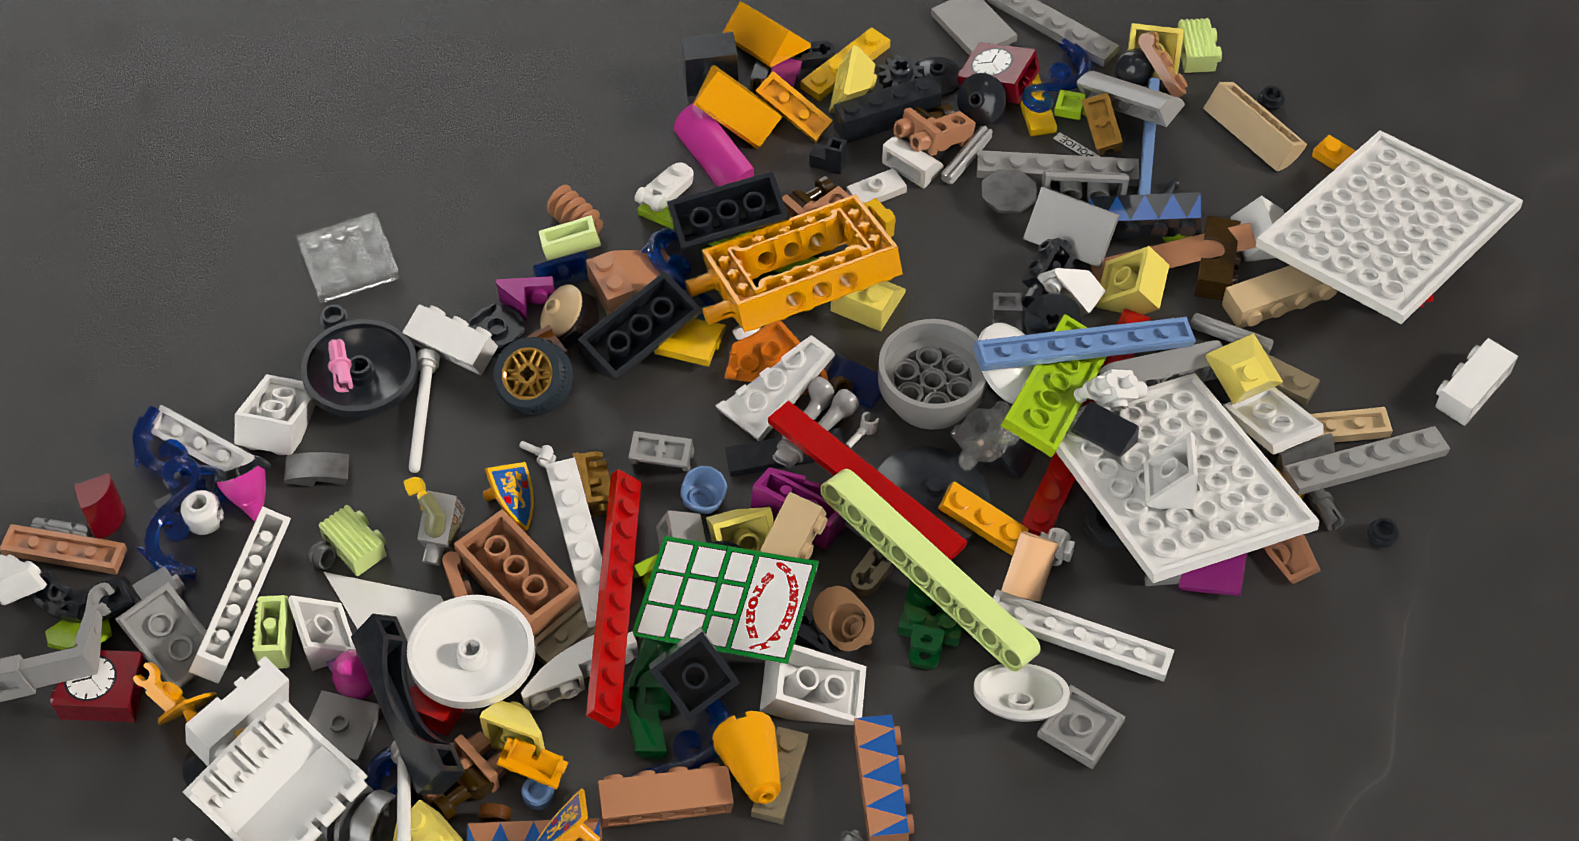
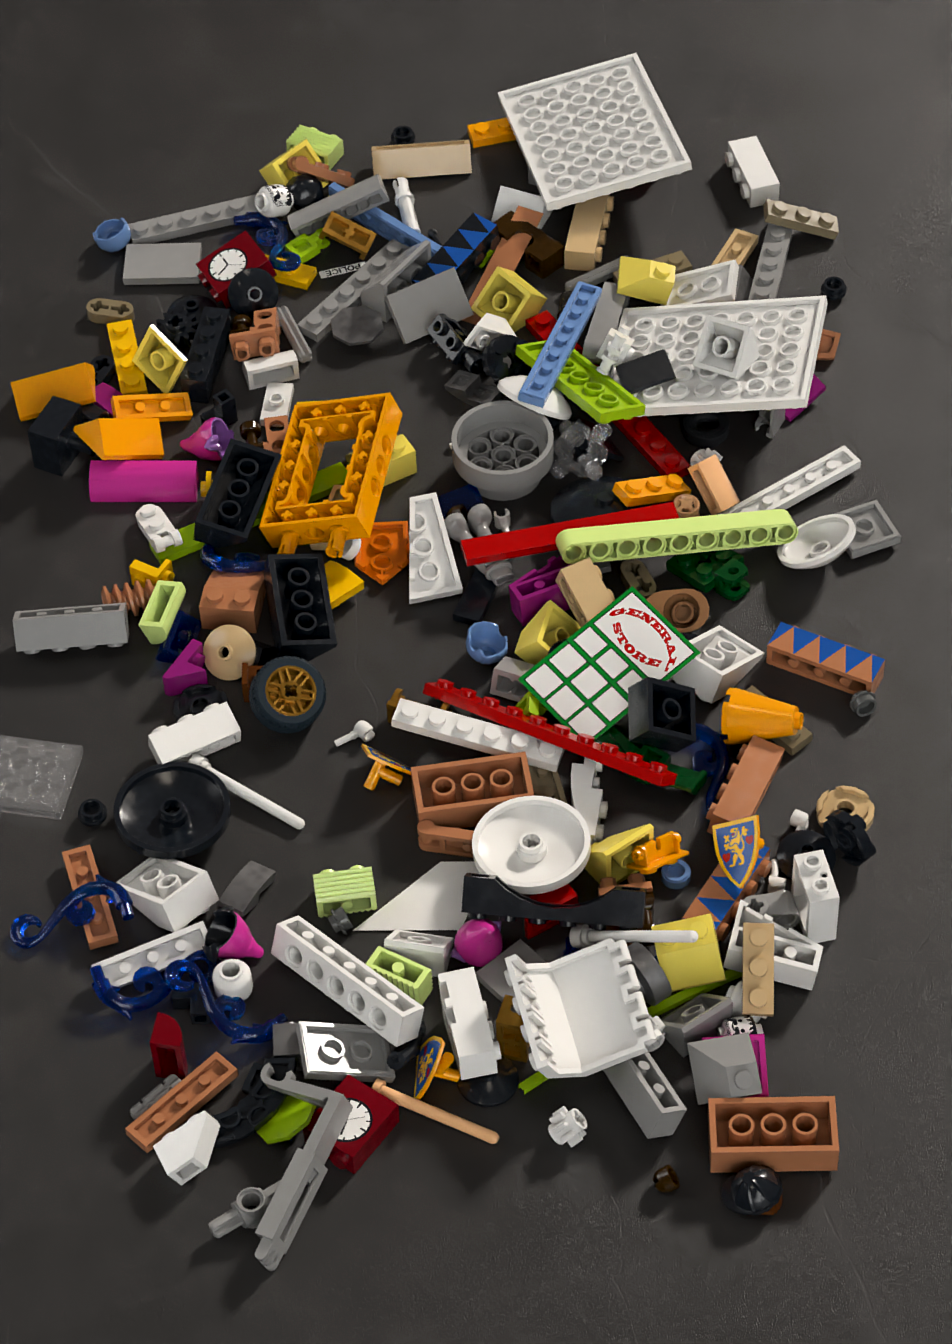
camera: 55 degrees left, 5 degrees down
(150, 753) = (436, 1113): none -> light nougat bar
(163, 693) = (403, 1074): light orange plate -> none
(188, 683) = (397, 1060): none -> black piece
(214, 363) = (68, 906): none -> clear blue plant
(242, 366) = (82, 870): none -> nougat plate
(340, 366) = (166, 815): bright pink axle -> none
(439, 520) = (380, 815): torso -> none
(494, 813) = (679, 905): reddish brown tile -> none
(512, 190) = (71, 627): none -> light grey brick
(613, 219) = (141, 571): none -> yellow bracket
(661, 450) = (426, 651): light grey hinge -> none
(791, 168) = (209, 440): none -> hat
(894, 21) = (109, 311): none -> dark tan beam
(982, 556) = (687, 506): none -> light nougat wheel
(1100, 52) = (274, 200): none -> white head
(1192, 142) = (405, 202): none -> white pin
(1444, 453) = (800, 219): none -> dark tan plate

